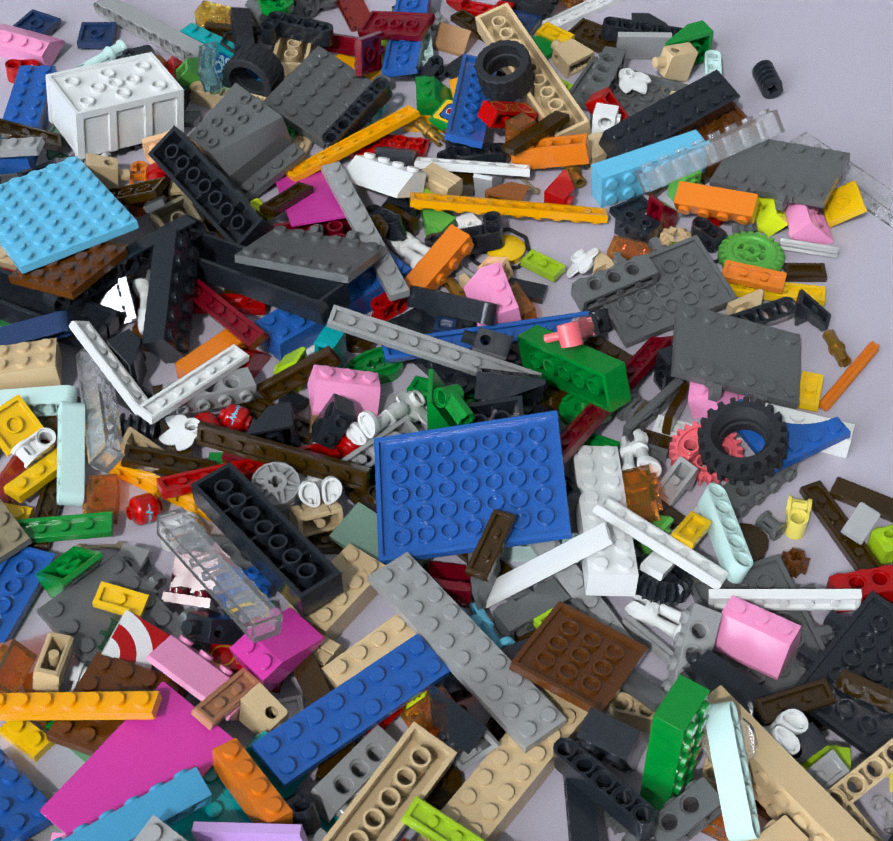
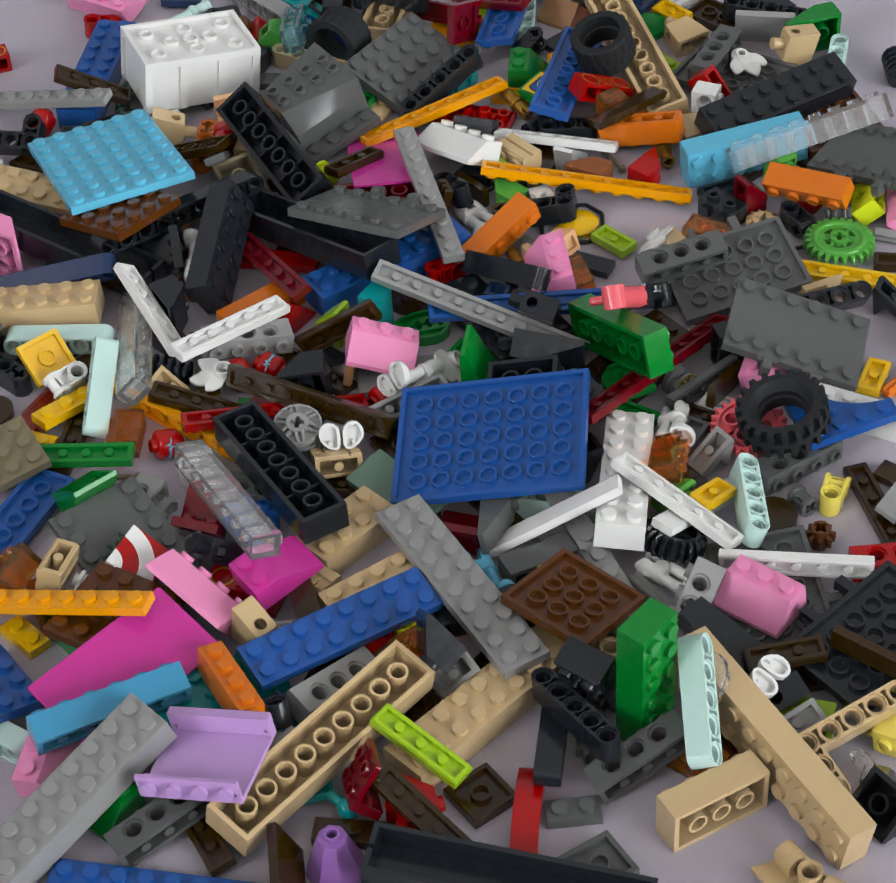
camera: 10 degrees right, 5 degrees down
(119, 599) = (126, 515): yellow plate -> none
(224, 699) = (215, 609): nougat tile -> none
(333, 421) = (365, 372): black brick -> none
(453, 400) = (486, 354): green piece -> none
(491, 545) = (502, 491): dark brown tile -> none
(754, 276) = (835, 261): orange plate -> none

